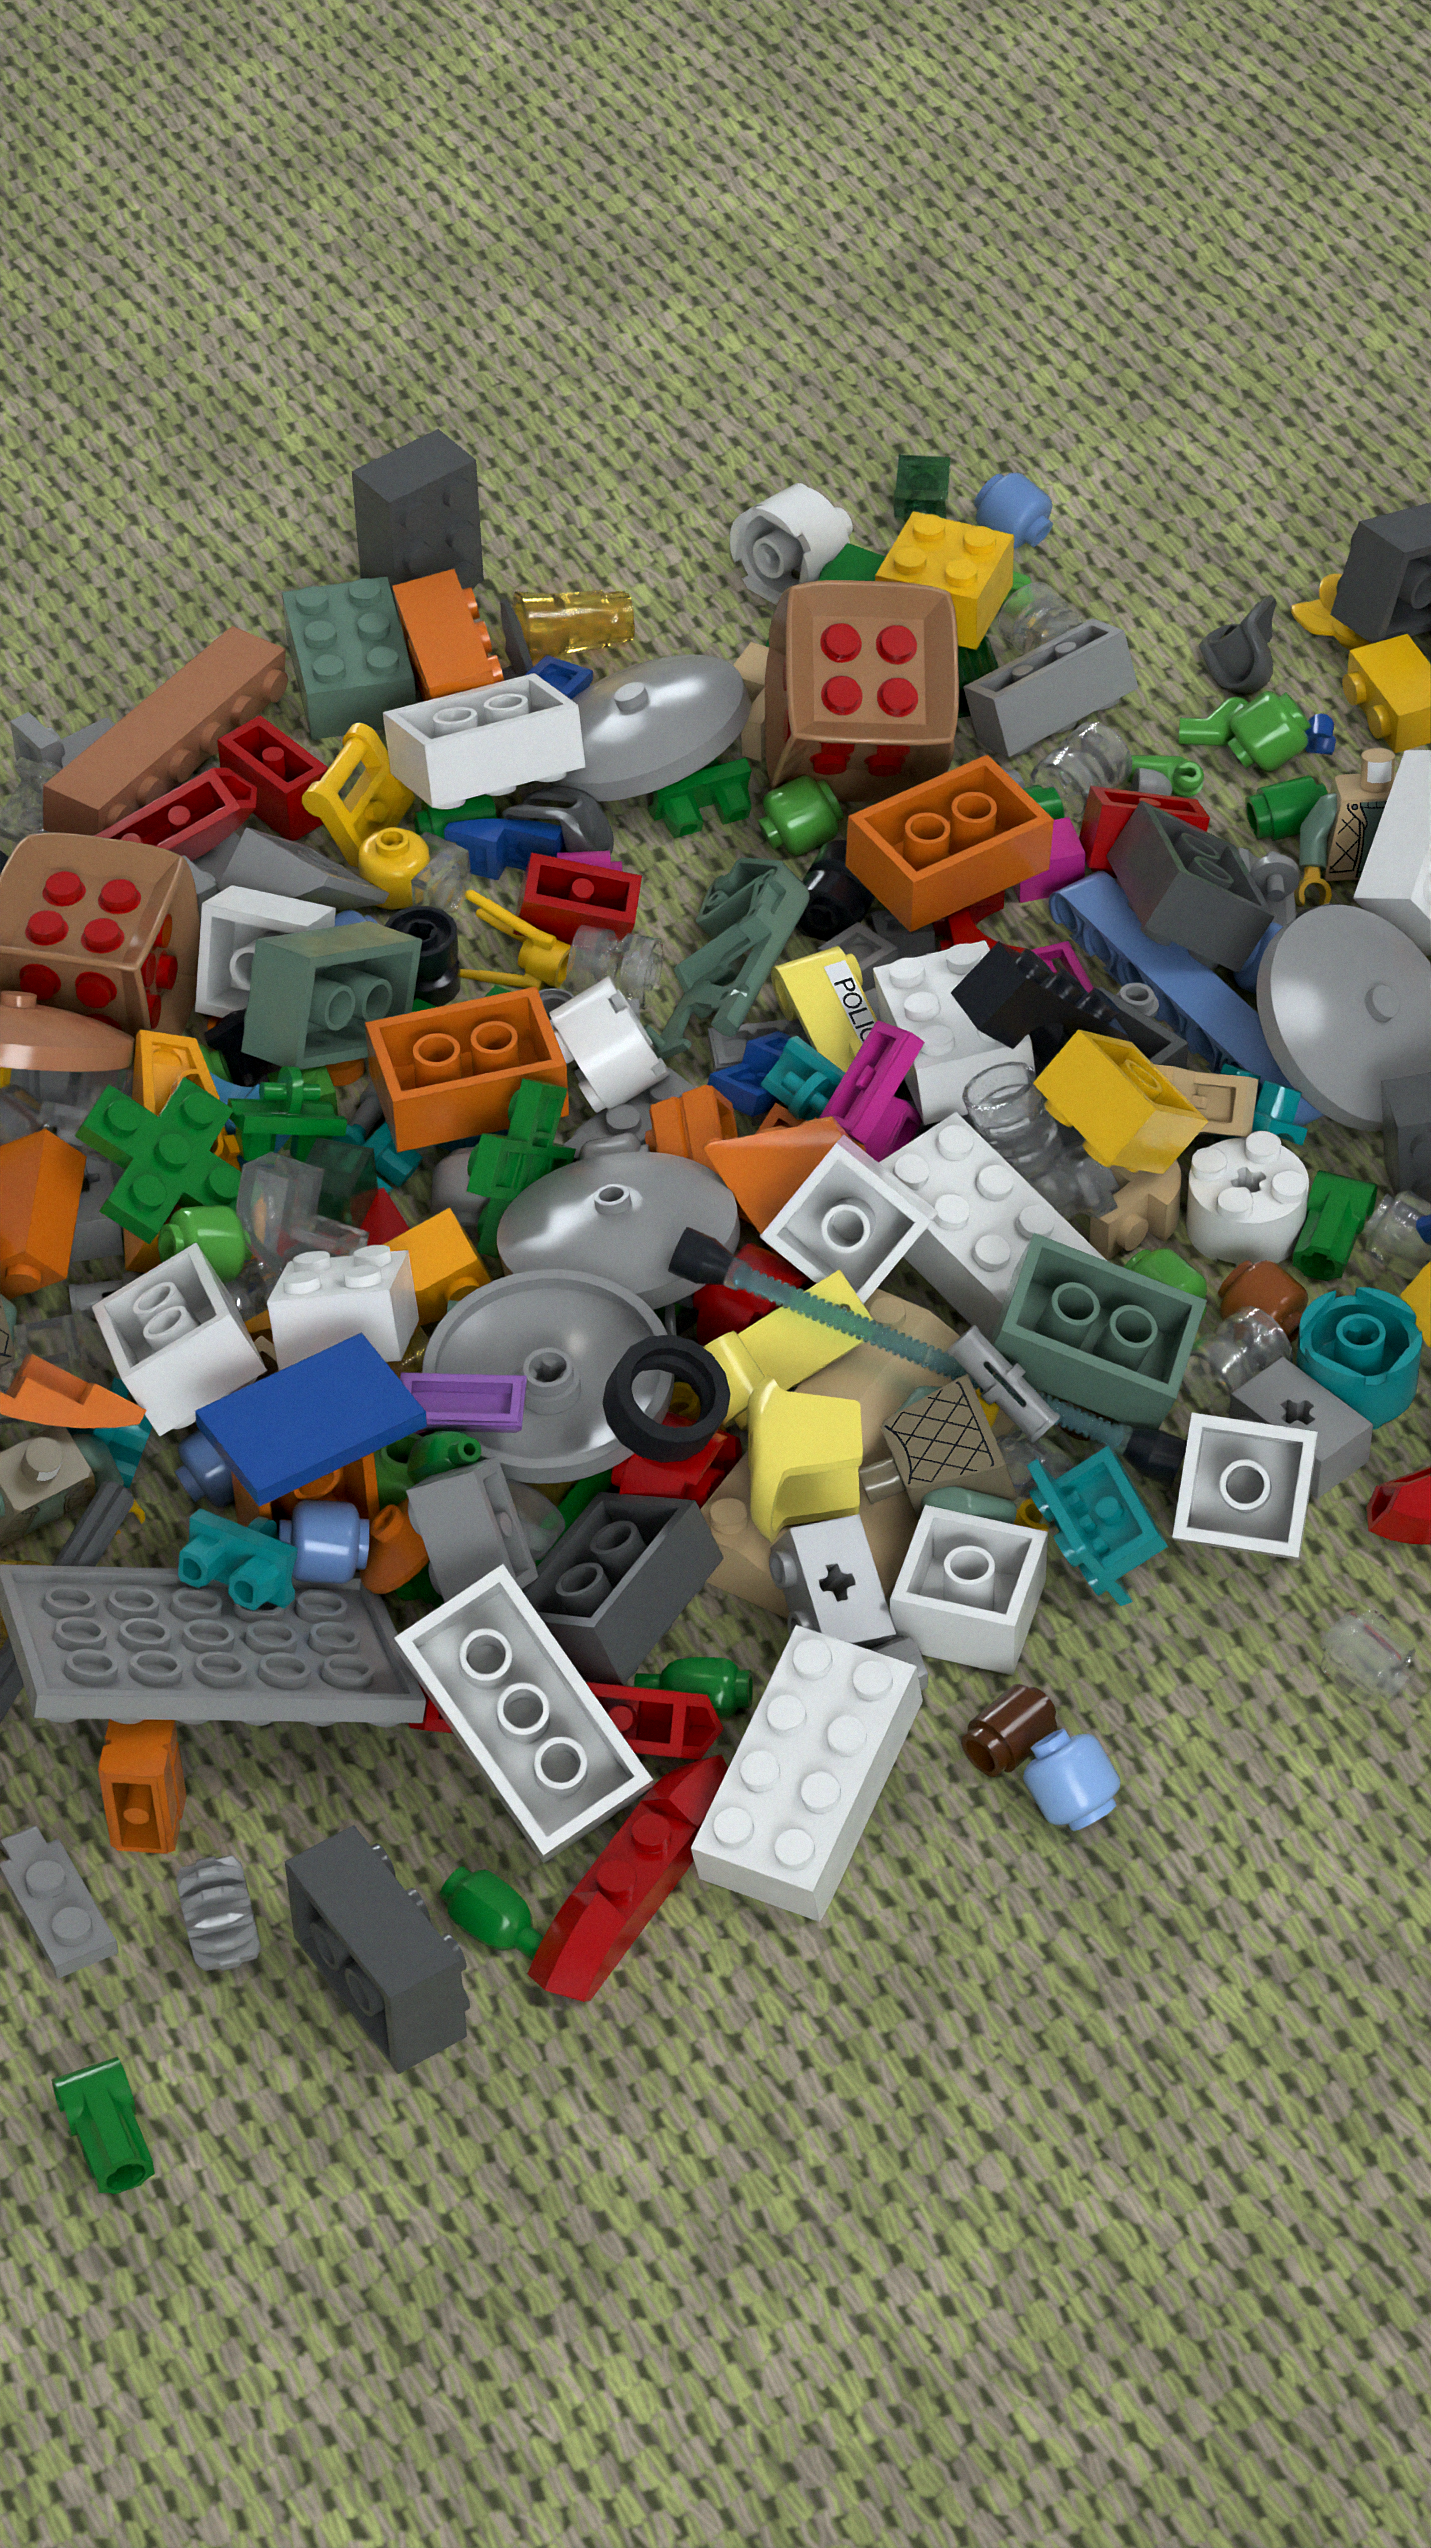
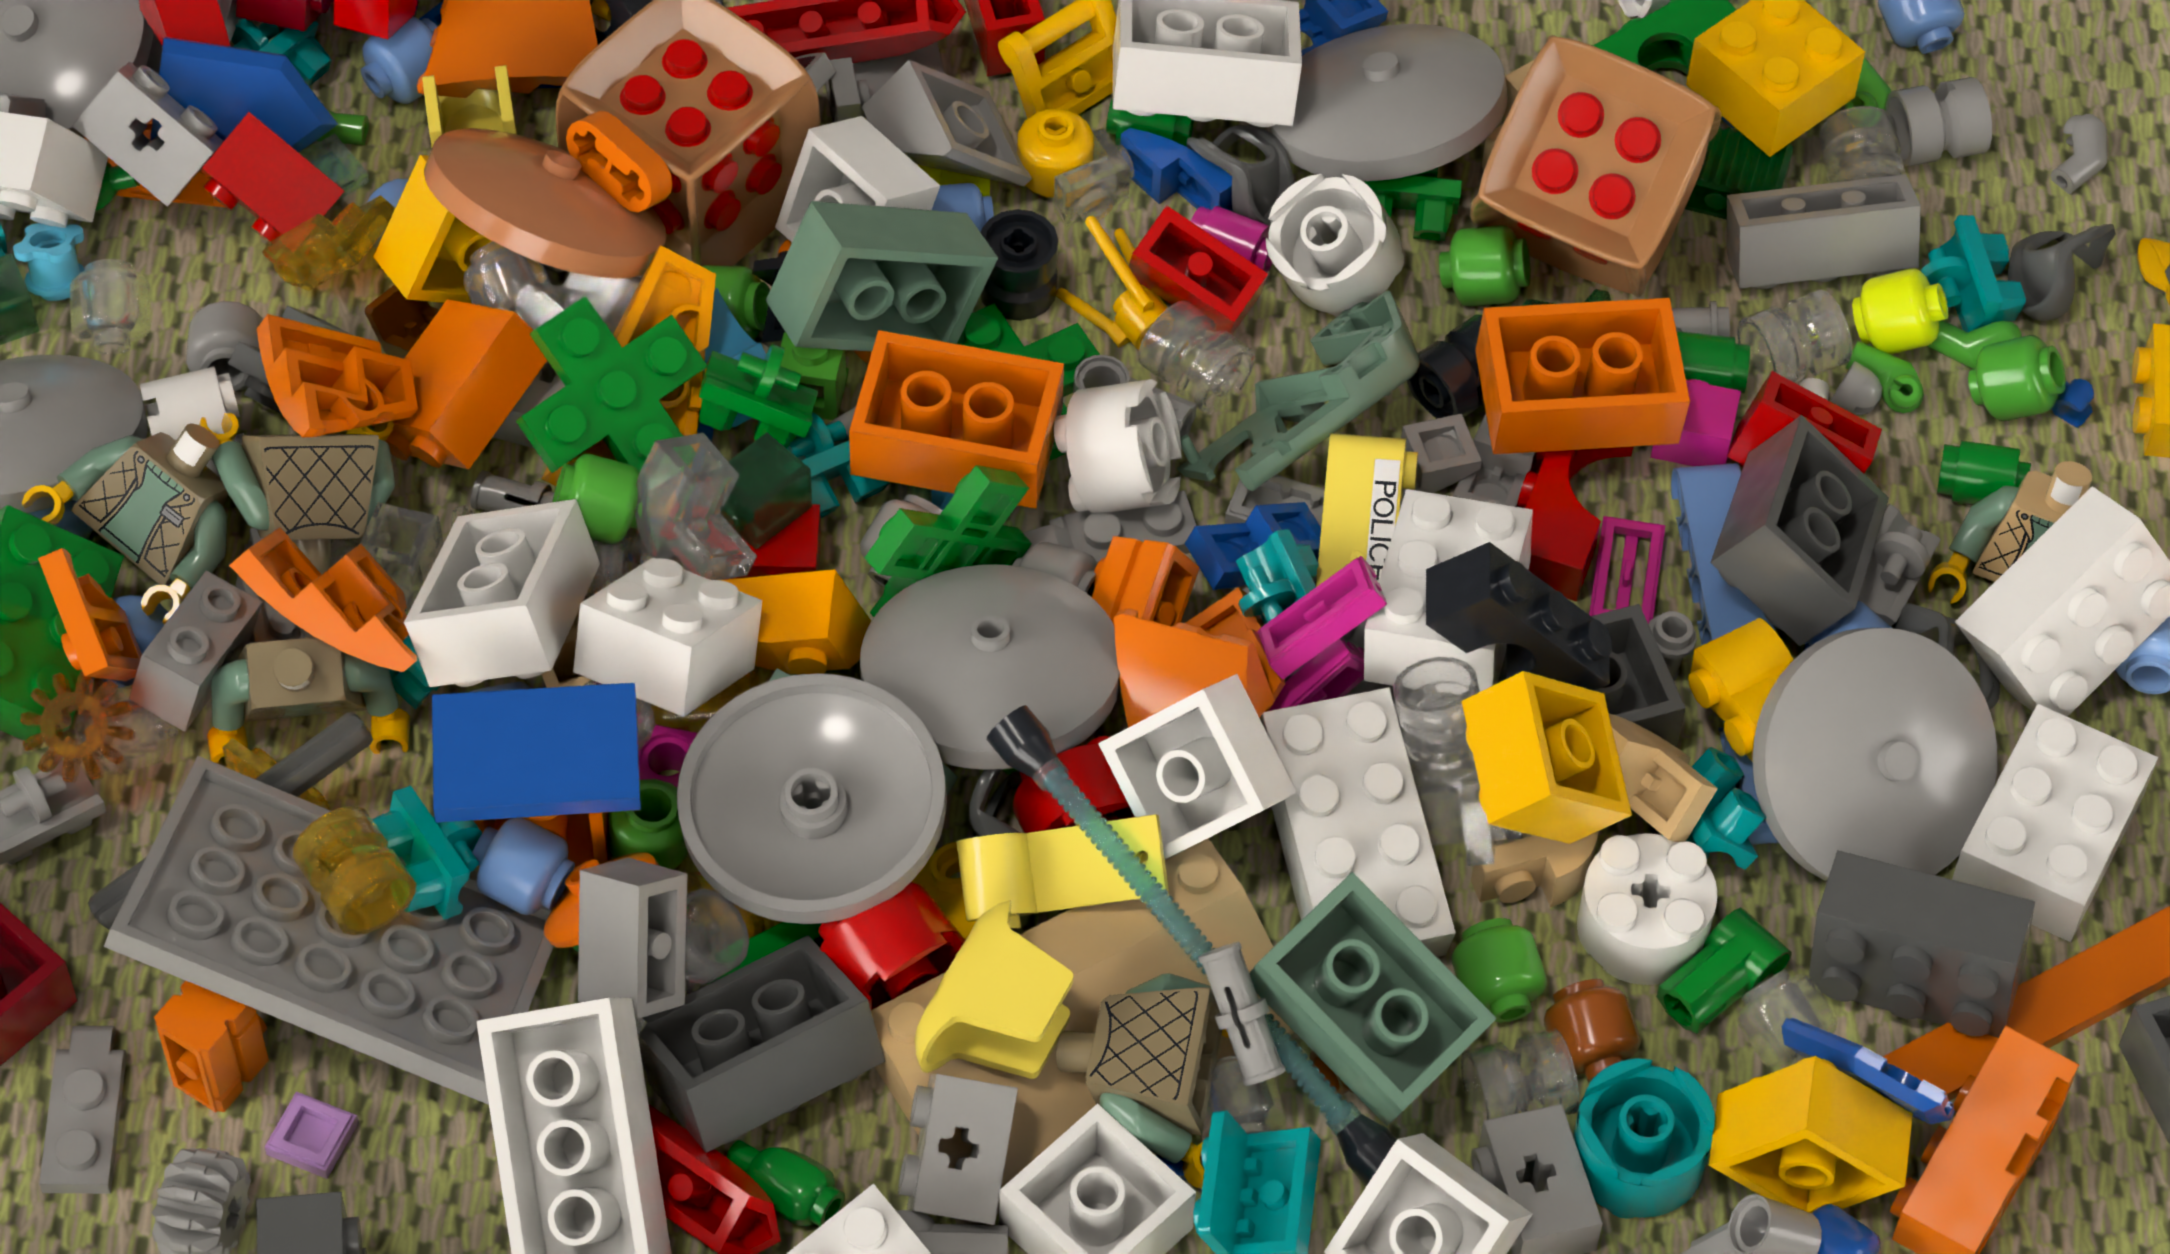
camera: 25 degrees right, 10 degrees up
(65, 978) = (619, 161): none -> orange beam
(201, 1583) = (354, 870): none -> clear yellow wheel
(265, 1831) = (311, 1135): none -> lavender tile
(441, 1453) = (655, 840): green plant -> none
(469, 1401) = (704, 792): medium lavender tile -> none
(674, 838) = (1333, 242): none -> white brick
(690, 1364) = (902, 833): black tyre -> none
(1091, 575) = (1949, 119): none -> light grey wheel
(1149, 718) = (1899, 311): none -> neon yellow head
(1180, 677) = (1967, 274): none -> teal hips
(1211, 565) = (2089, 152): none -> light grey arm
(1220, 1008) = (1736, 677): none -> yellow brick

